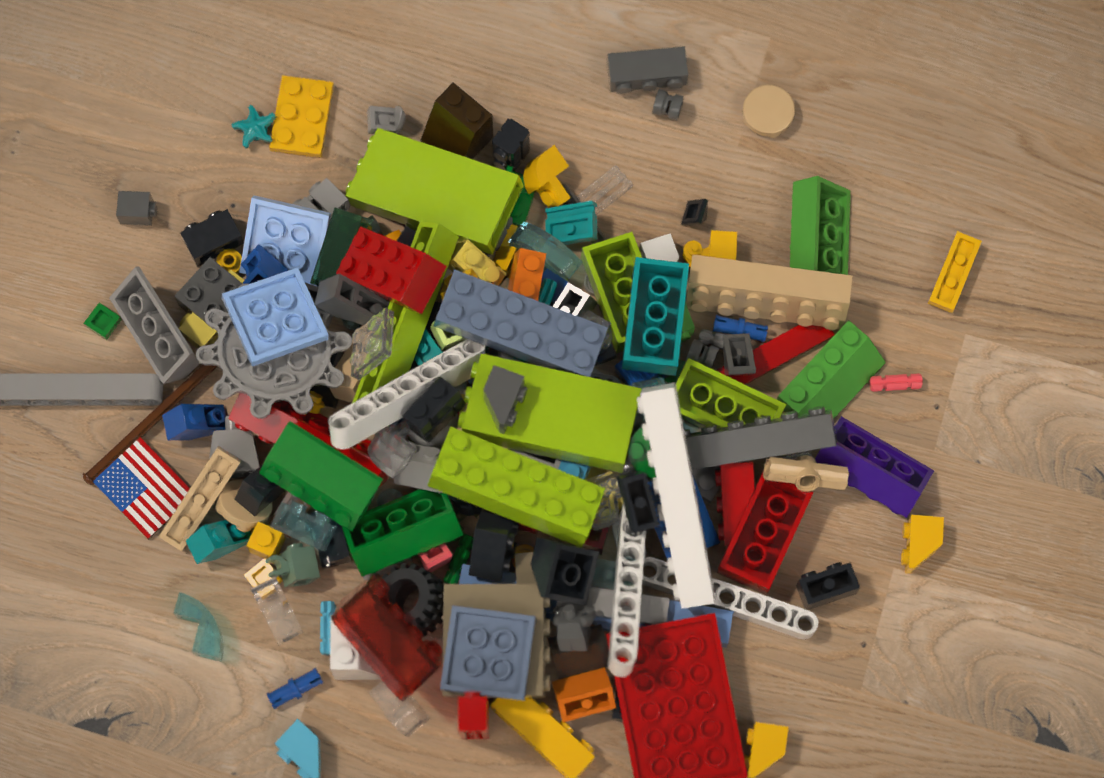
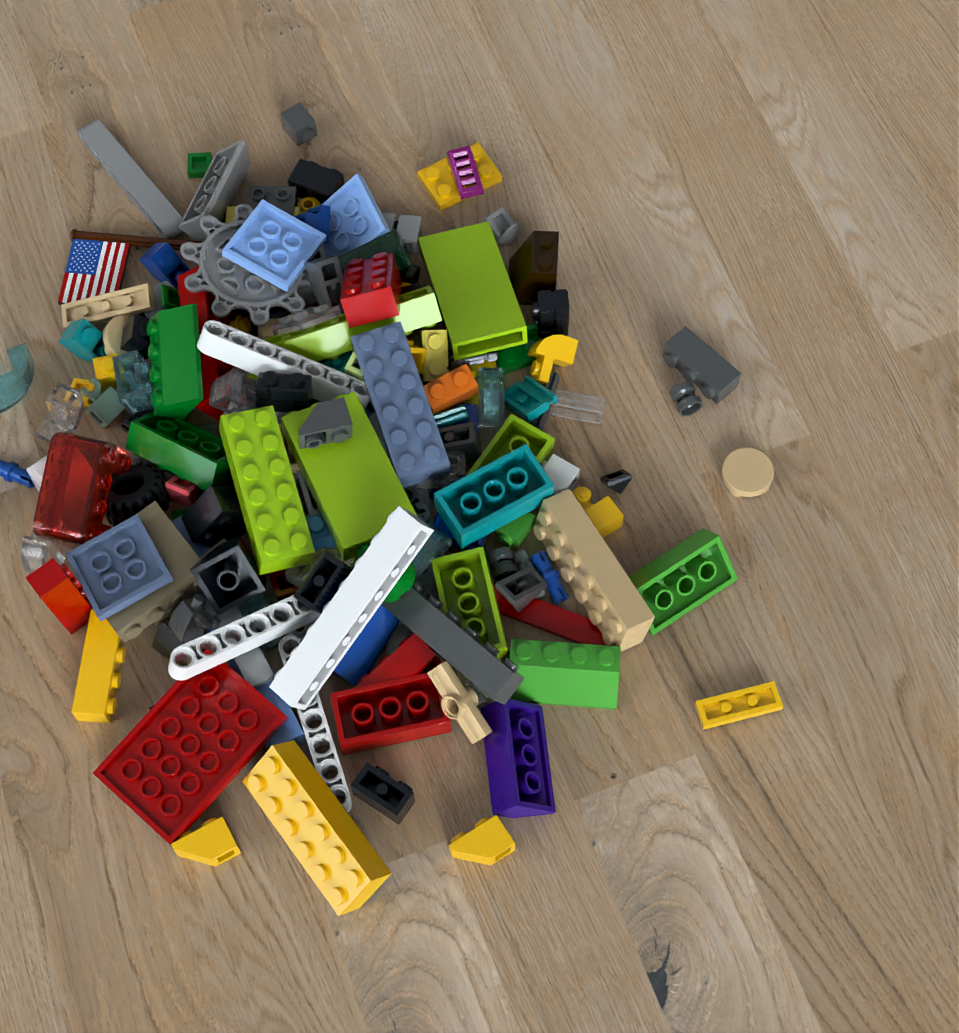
camera: 55 degrees right, 10 degrees down
(242, 440) = (169, 297): none -> green slope
(254, 127) = (424, 152): teal animal -> none
(298, 114) = (461, 158): none -> magenta slope
(583, 694) = (146, 670): orange brick -> none
(820, 655) = (316, 827): none -> yellow brick
(896, 382) = (605, 727): coral axle -> none

